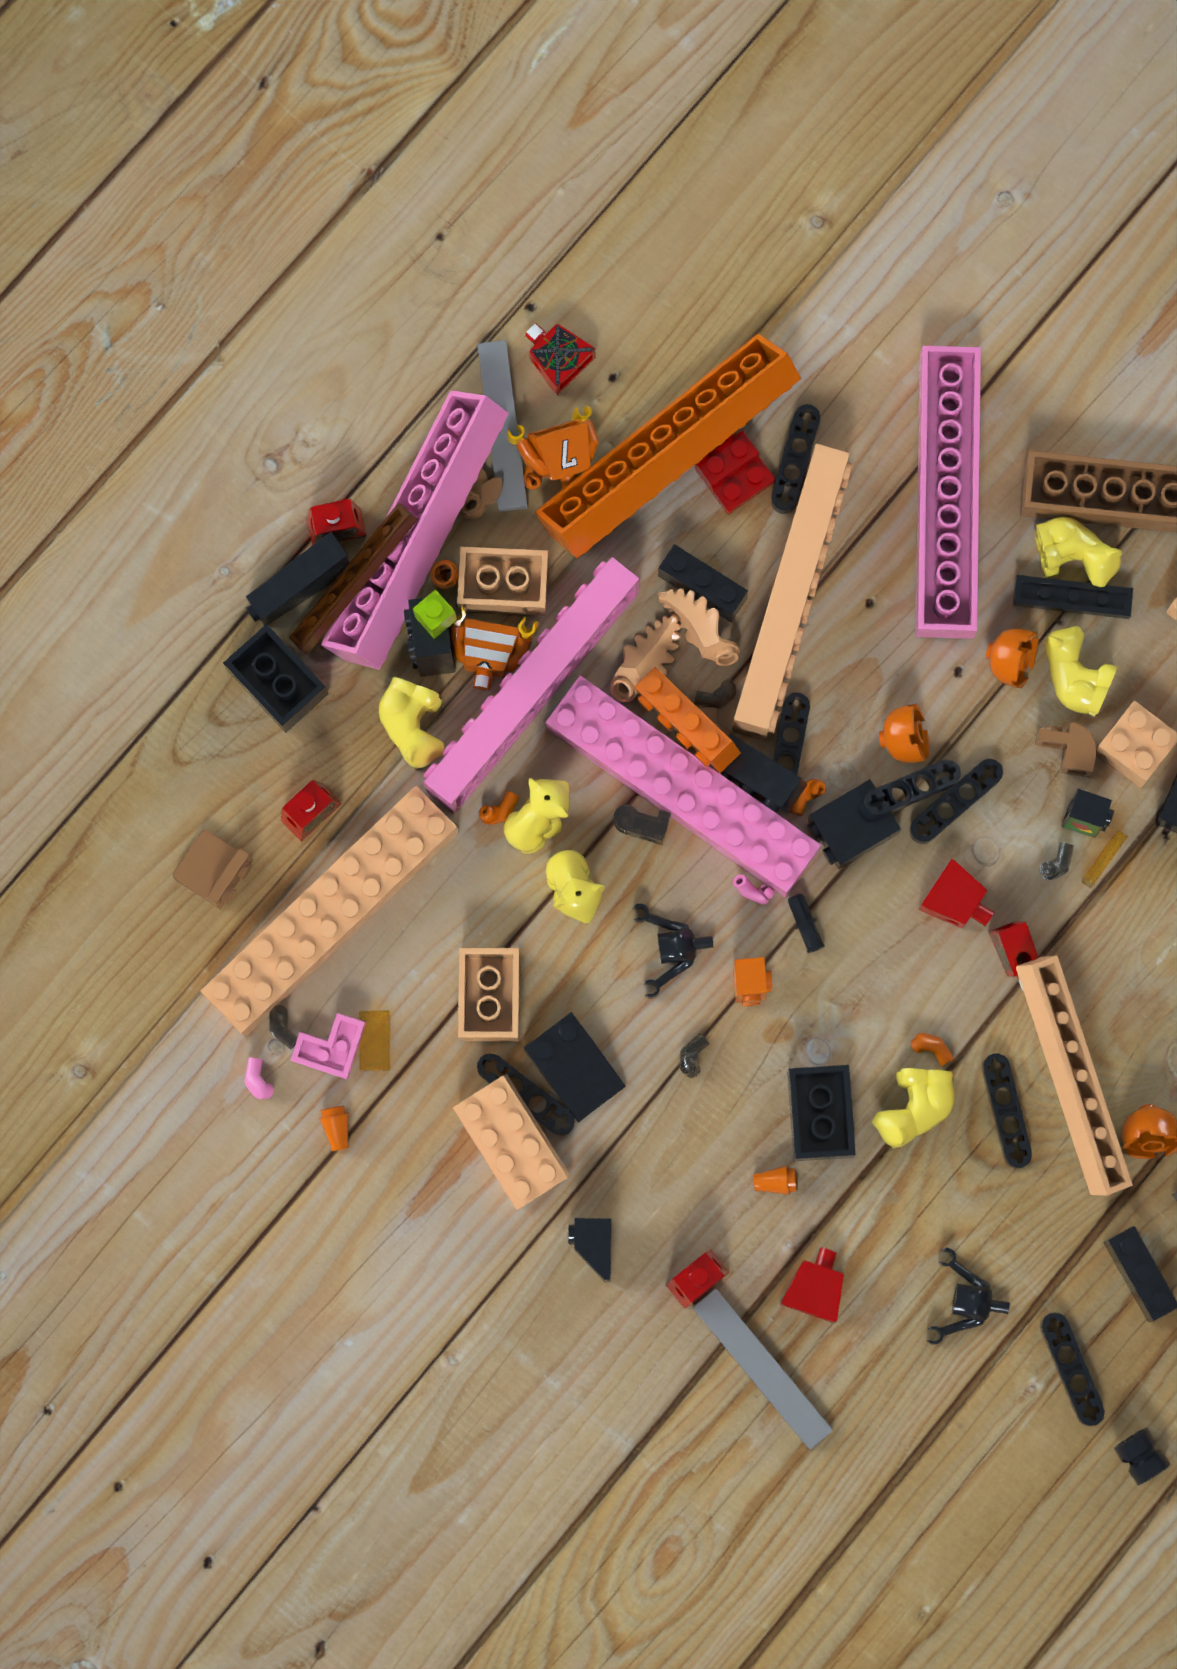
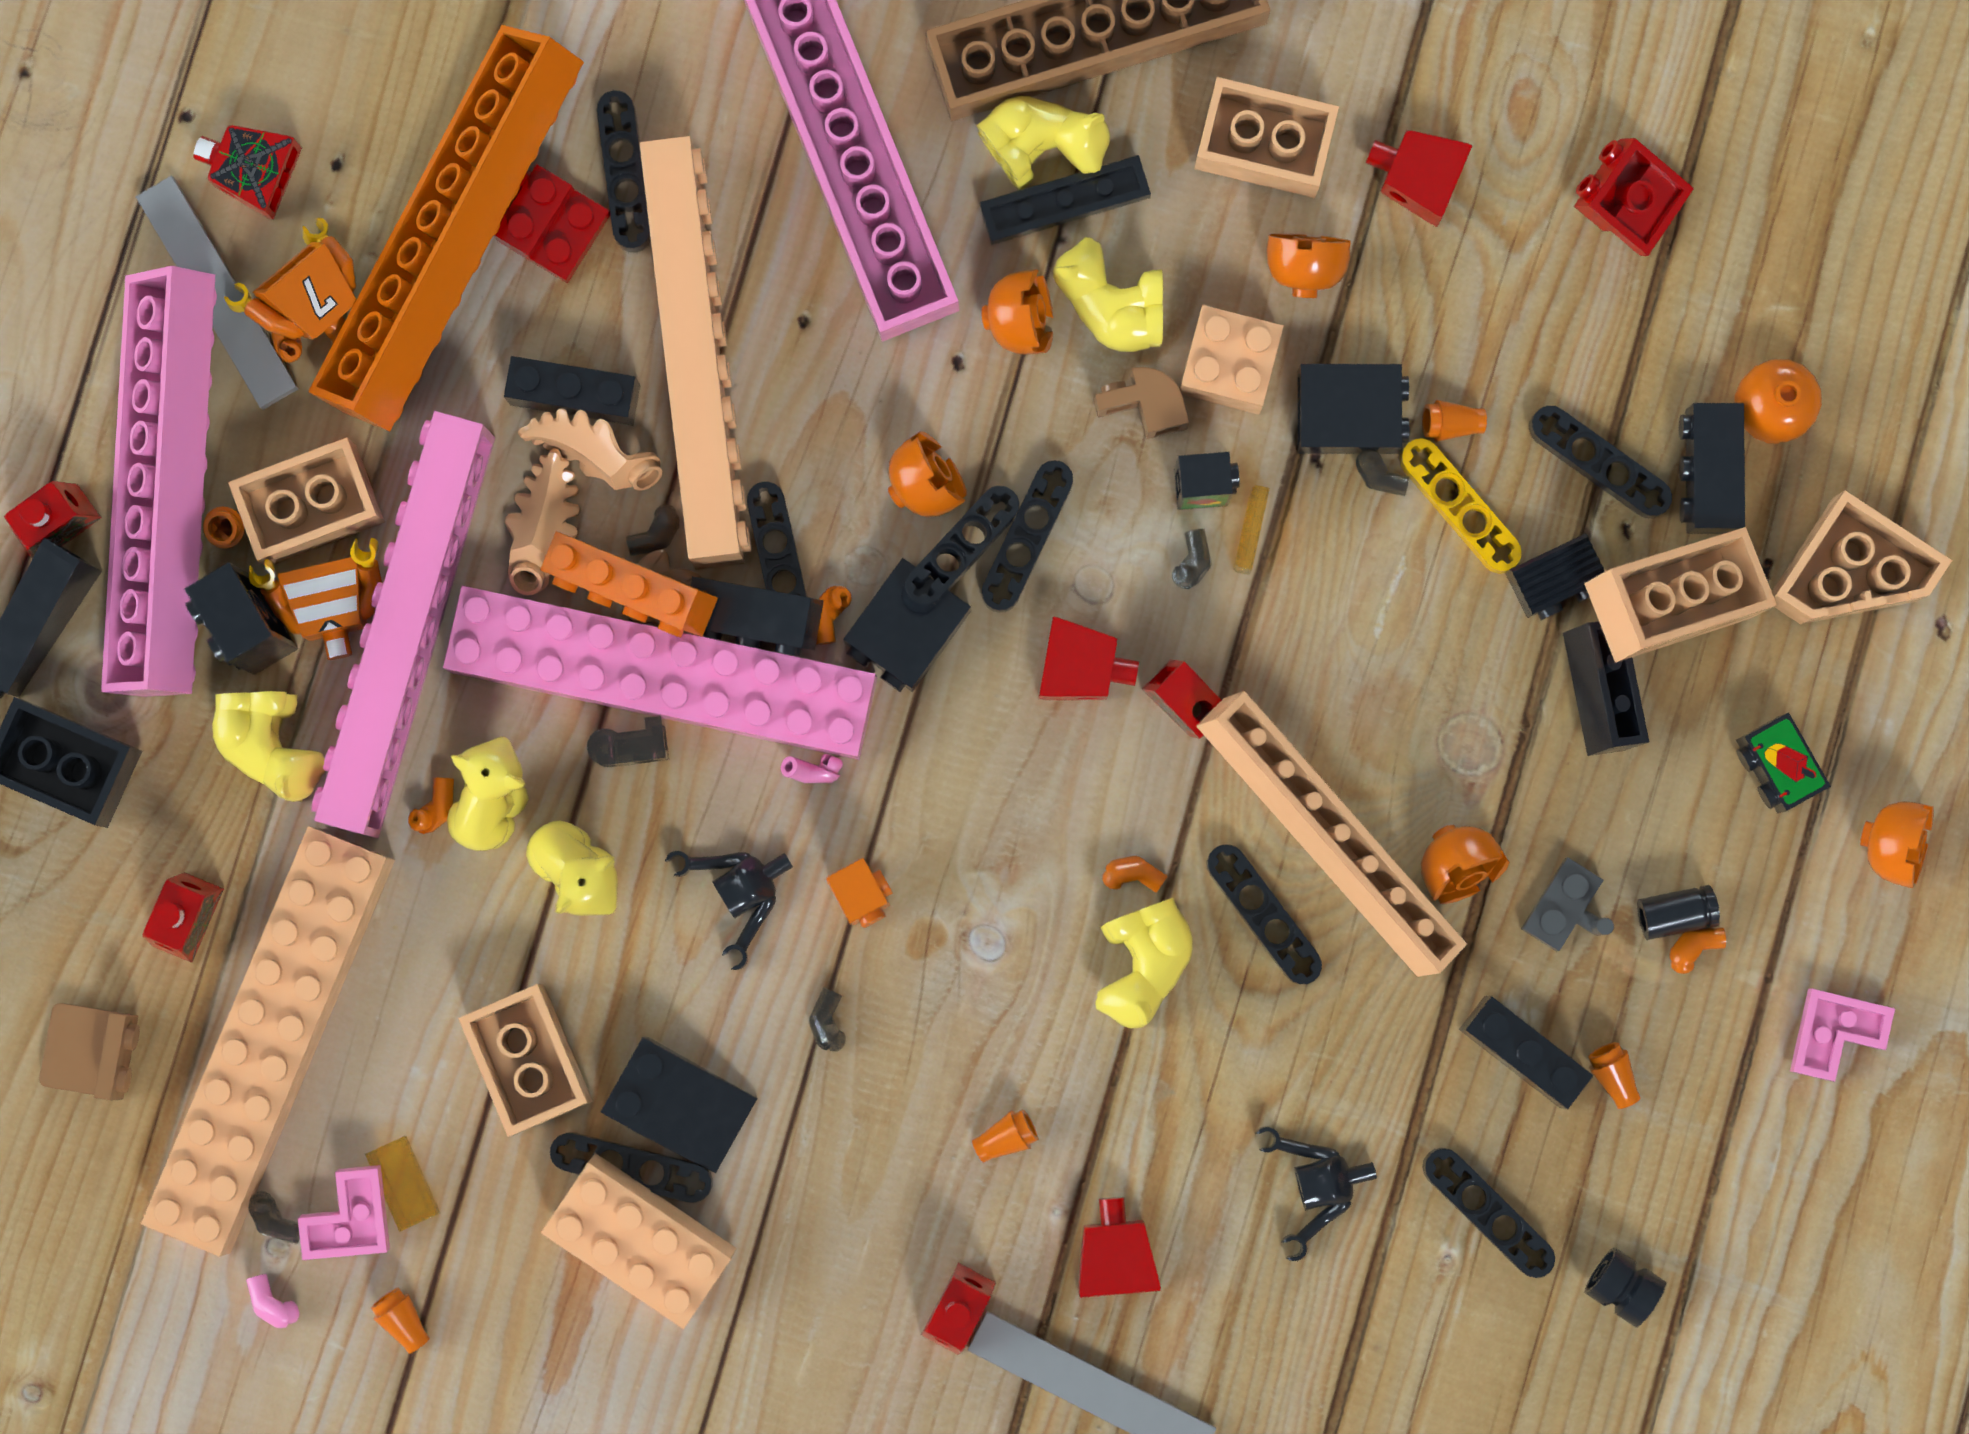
camera: 25 degrees left, 5 degrees up
(353, 578) = (104, 585): reddish brown tile -> none
(434, 614) = (226, 594): lime brick -> none
(483, 493) = (228, 393): medium nougat plate -> none
(593, 1244) = (803, 1329): black slope -> none
(805, 923) = (899, 782): black axle -> none
(821, 1113) = (1025, 1025): black brick -> none

